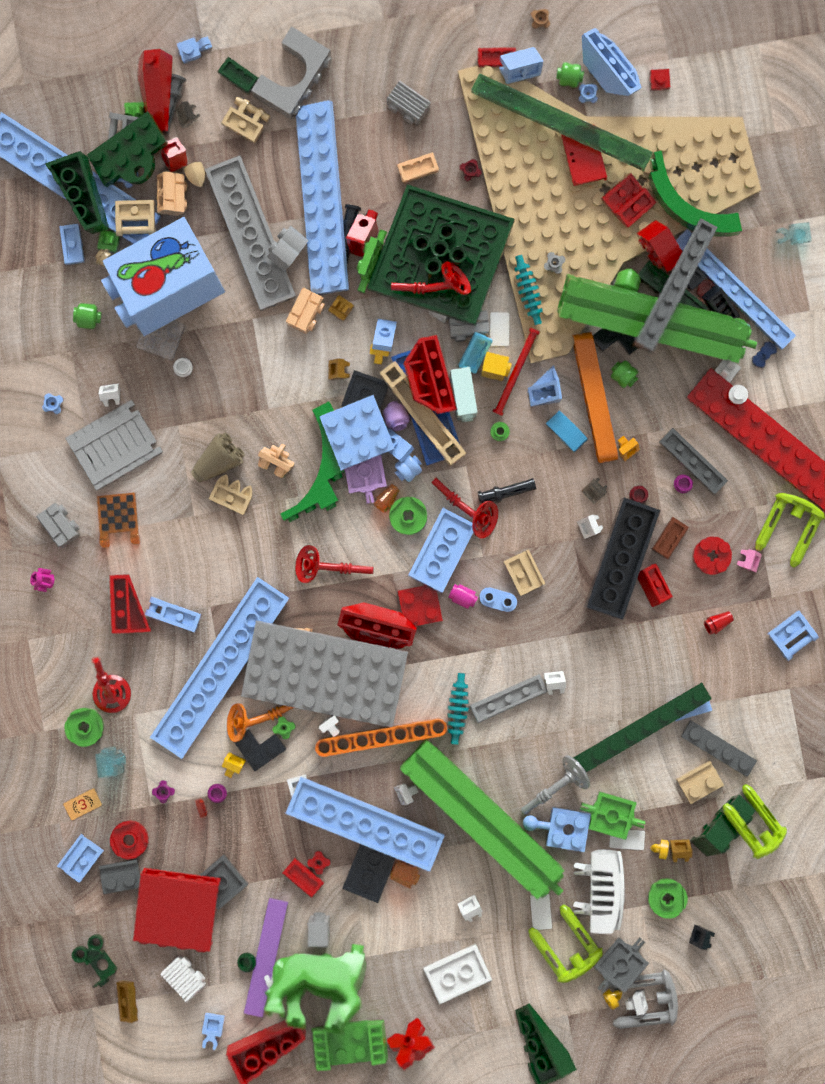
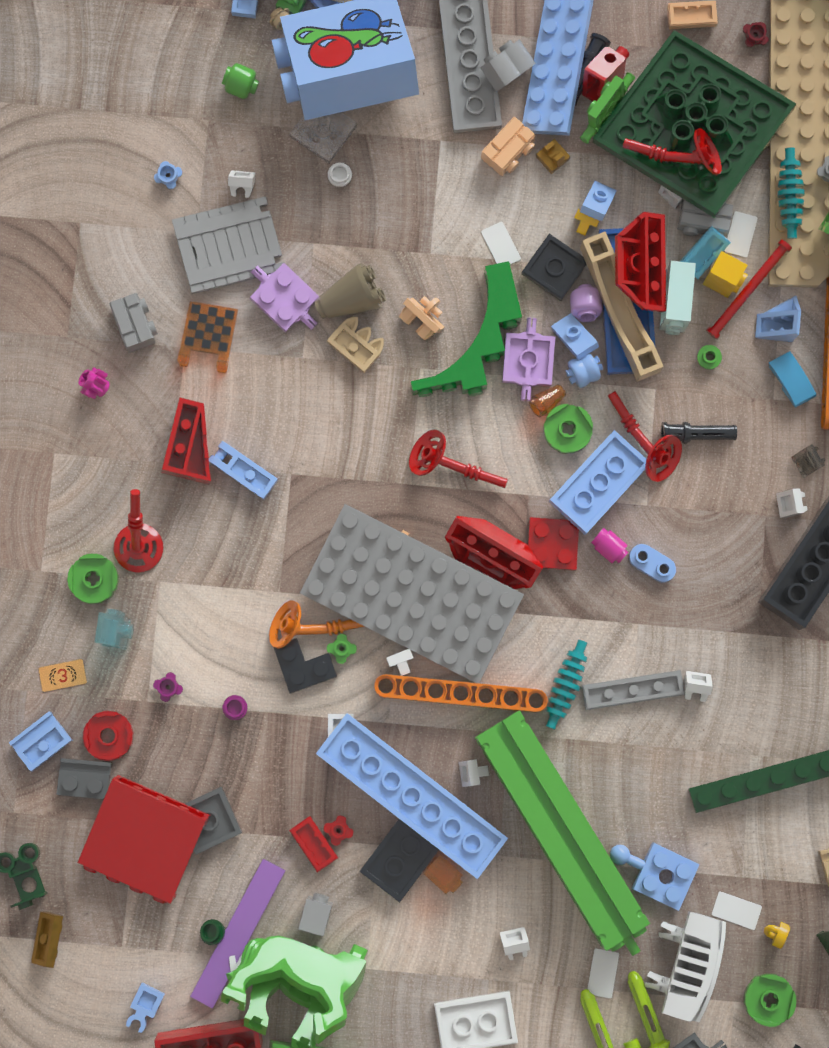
camera: 15 degrees right, 5 degrees down
(167, 474) = (284, 297): none -> lavender plate
(183, 978) = (127, 929): white brick -> none
(201, 807) = (210, 719): clear red tile -> none
(217, 669) = (278, 553): light blue plate -> none
(233, 764) = (265, 676): yellow tile -> none
(320, 387) = (500, 244): none -> white sticker
(336, 369) = (528, 227): pearl gold tile -> none
(357, 432) = (533, 308): light blue plate -> none
(524, 572) = (694, 538): tan plate -> none
(575, 773) = (687, 808): light grey dish -> none
(612, 815) = (726, 873): bright green plate -> none
(680, 849) = (802, 941): pearl gold tile -> none

